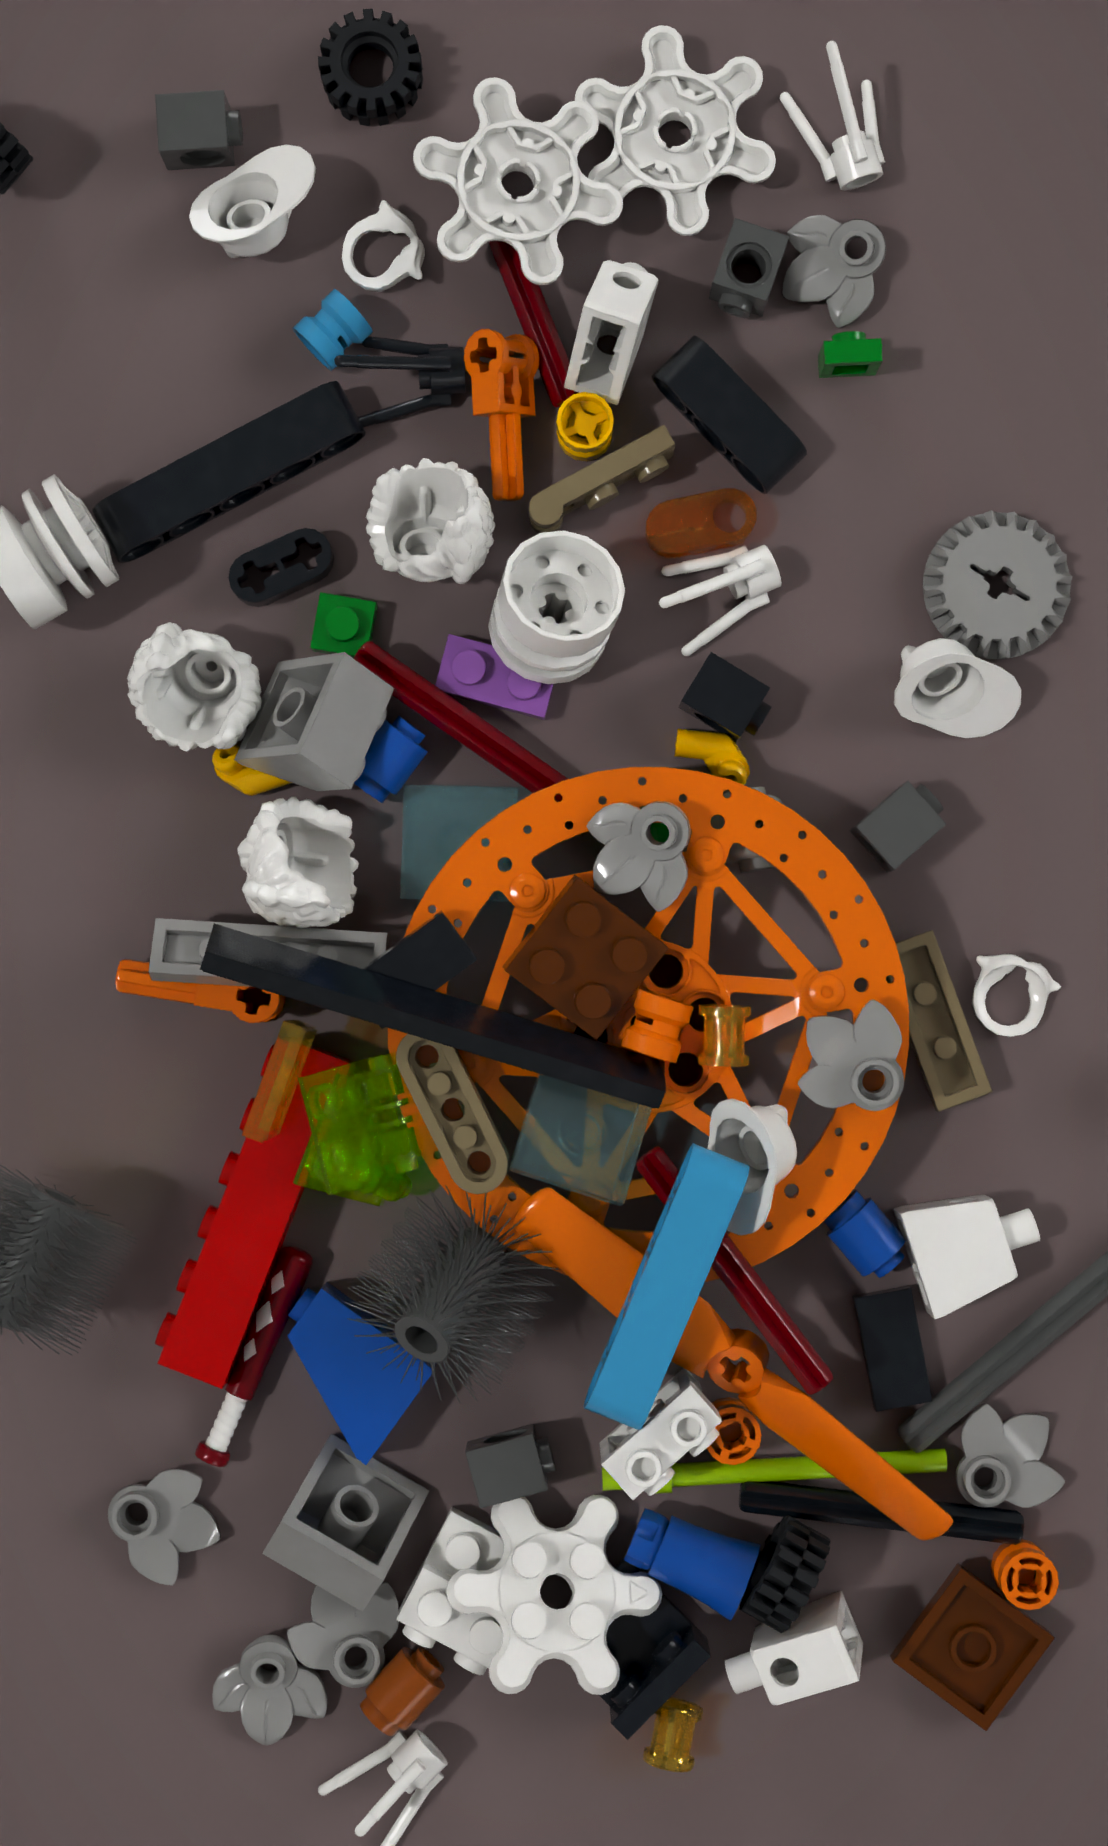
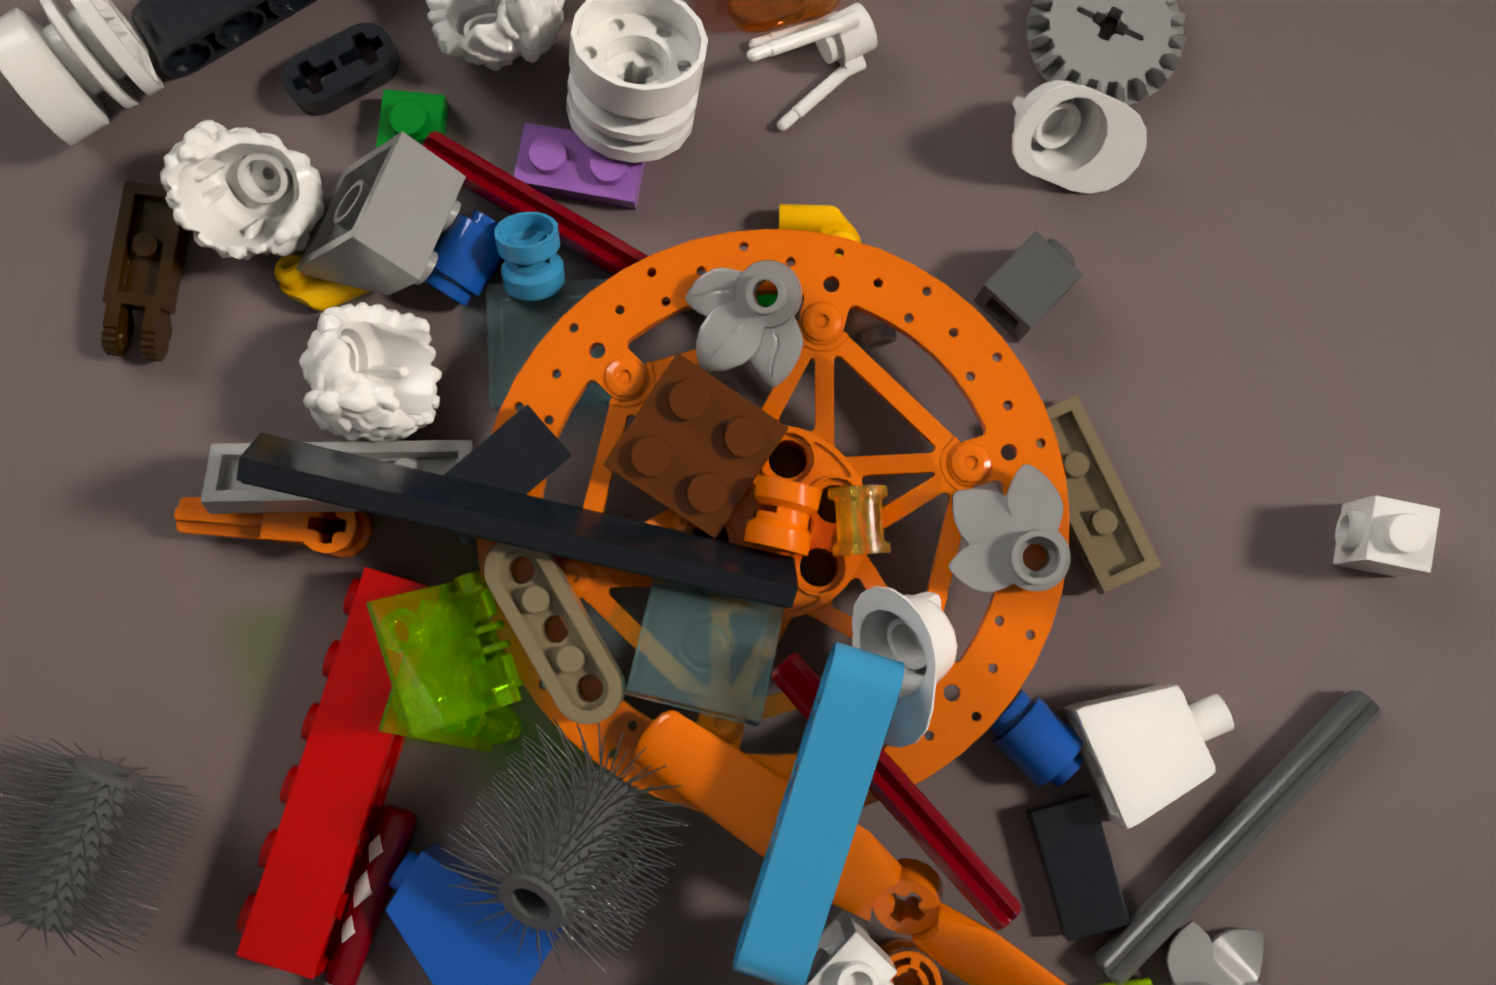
camera: 15 degrees left, 5 degrees down
(94, 743) = (143, 272): none -> dark brown hinge
(279, 1080) = (342, 625): clear yellow tile -> none
(447, 765) = (529, 249): none -> dark azure wheel
(726, 698) = (828, 164): black brick -> none
(1039, 988) = (1197, 452): white piece -> none

